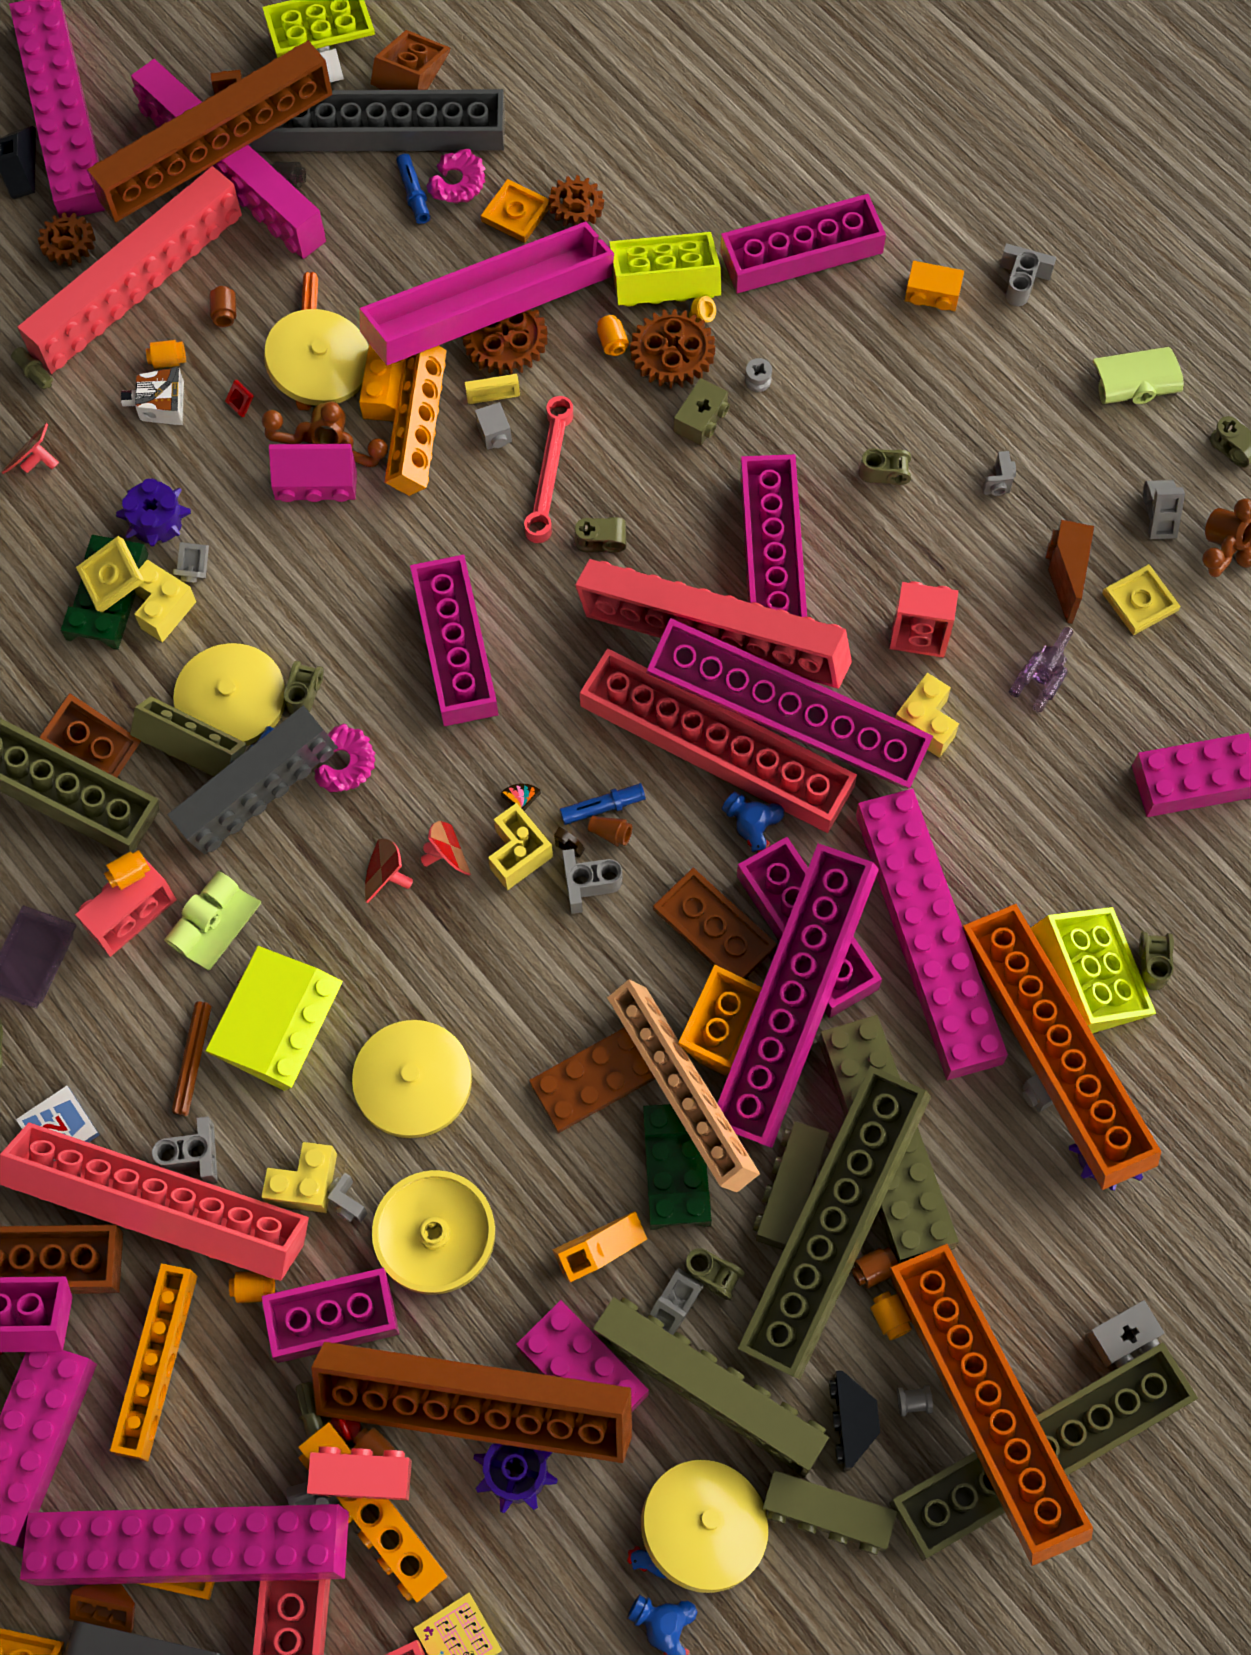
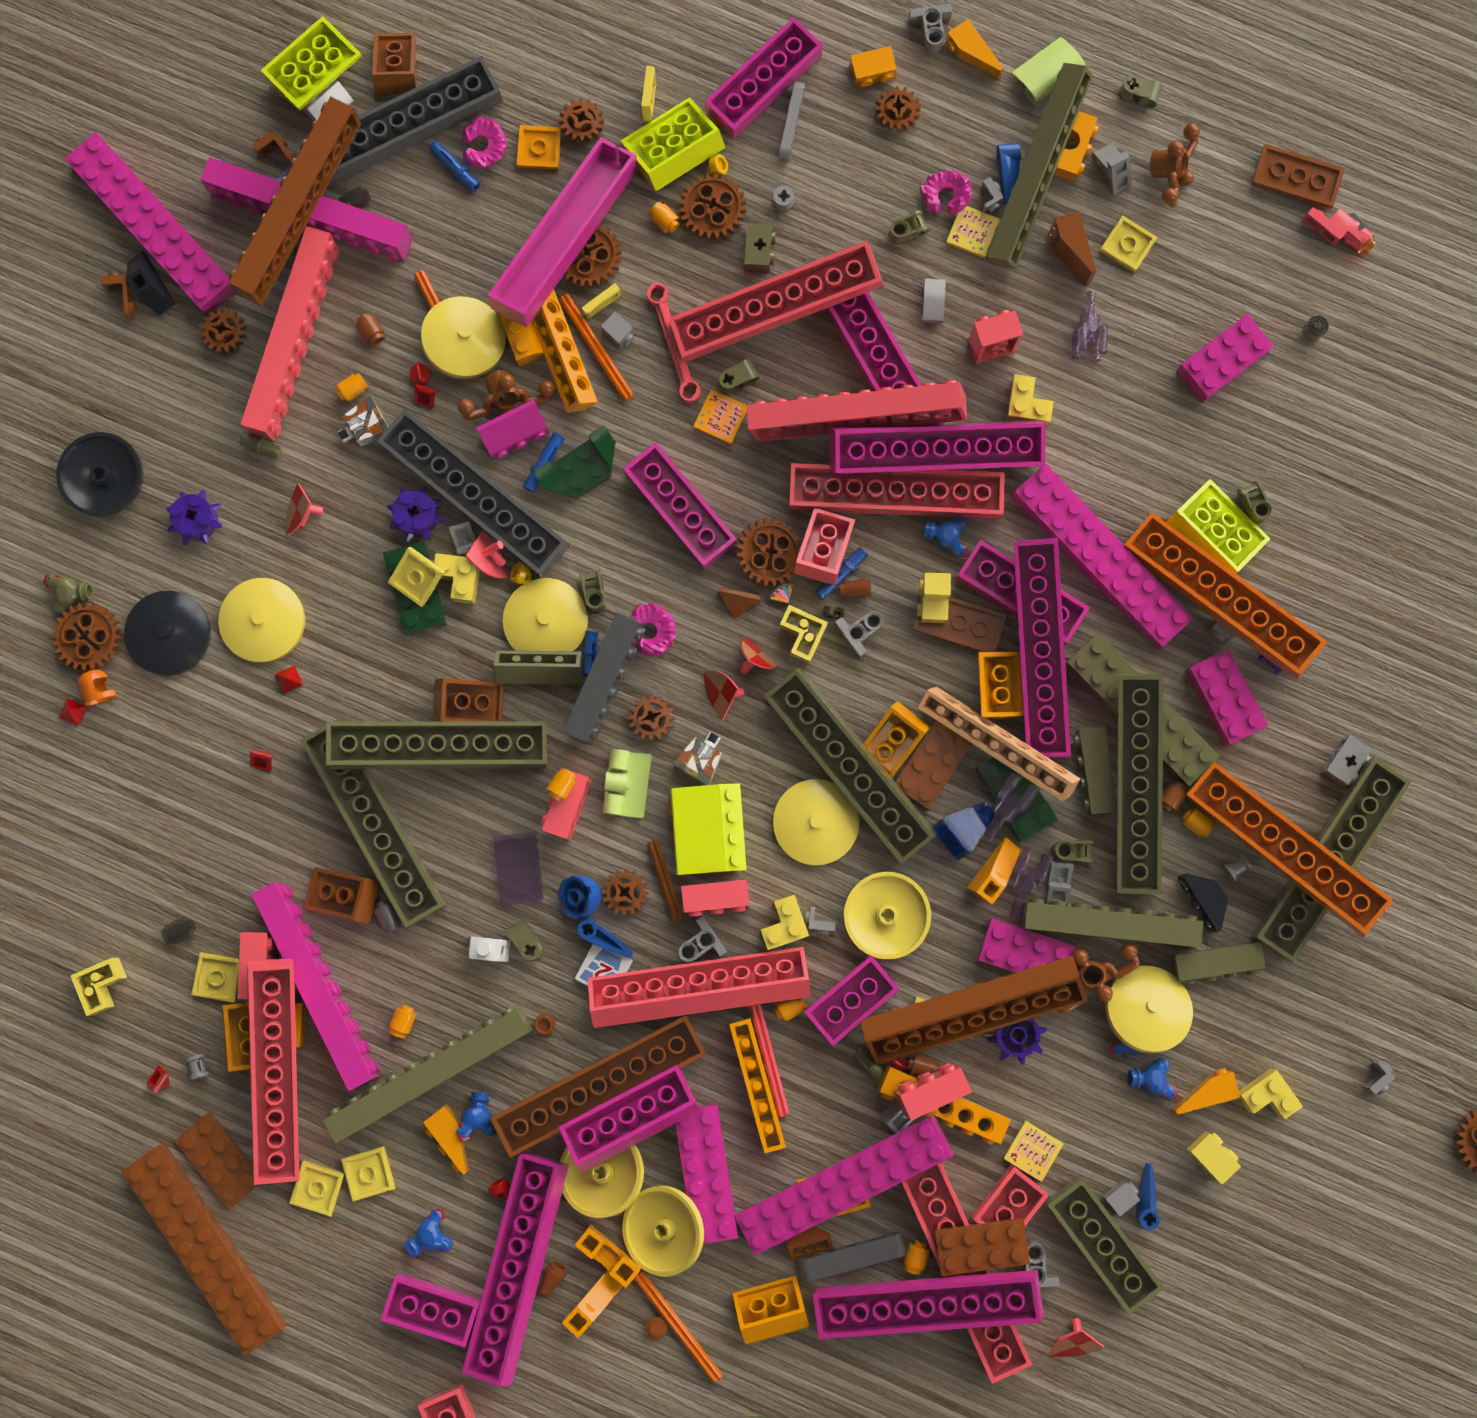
camera: 25 degrees left, 15 degrees up
(75, 1084) = (601, 937): none -> blue piece
(78, 1021) = (579, 896): none -> blue cylinder
(124, 1047) = (617, 899): none -> dark orange gear
(190, 1340) = (769, 1060): none -> coral axle
(204, 593) = (486, 556): none -> coral shield
(230, 522) = (473, 493): none -> dark grey brick
(230, 628) = (519, 573): none -> yellow tile
(236, 1102) = (715, 897): none -> coral brick
(250, 375) = (420, 374): none -> red tile
(277, 850) = (661, 713): none -> dark orange gear
(315, 933) = (700, 758): none -> torso
(321, 530) = (547, 455): none -> blue pin
(366, 552) = (582, 467): none -> dark green piece
(459, 435) = (596, 347): none -> orange axle
(463, 778) = (737, 601): none -> dark orange slope
(489, 1029) = (850, 765): none -> olive brick
(549, 753) = (750, 548): none -> dark orange gear
(555, 569) = (721, 417): none -> light orange tile
(558, 1025) = (896, 737): none -> light orange slope
(588, 1172) = (964, 829): none -> clear blue slope
(596, 759) = (824, 546): none -> coral brick
(637, 1274) = (1028, 877): none -> plant
(661, 1168) = (1011, 803): none -> clear purple plant
(664, 204) = (648, 94): none -> light yellow tile
(674, 1444) = (1106, 972): none -> dark orange wheel
(686, 467) = (776, 301): none -> coral brick
(698, 874) = (935, 593): none -> light yellow brick
(811, 301) = (791, 120): none -> light grey beam
(874, 556) = (933, 301): none -> light grey slope
(949, 348) = (906, 105): none -> dark orange gear
(960, 438) = (951, 181): none -> dark pink piece
(961, 504) = (973, 231): none -> light yellow tile
(1004, 1177) = (1226, 698): none -> dark pink brick
(1038, 457) = (1008, 165): none -> blue piece
(1058, 316) = (971, 48): none -> light orange slope
(1073, 464) = (1039, 165): none -> olive brick
(1114, 480) = (1071, 160): none -> light orange arch

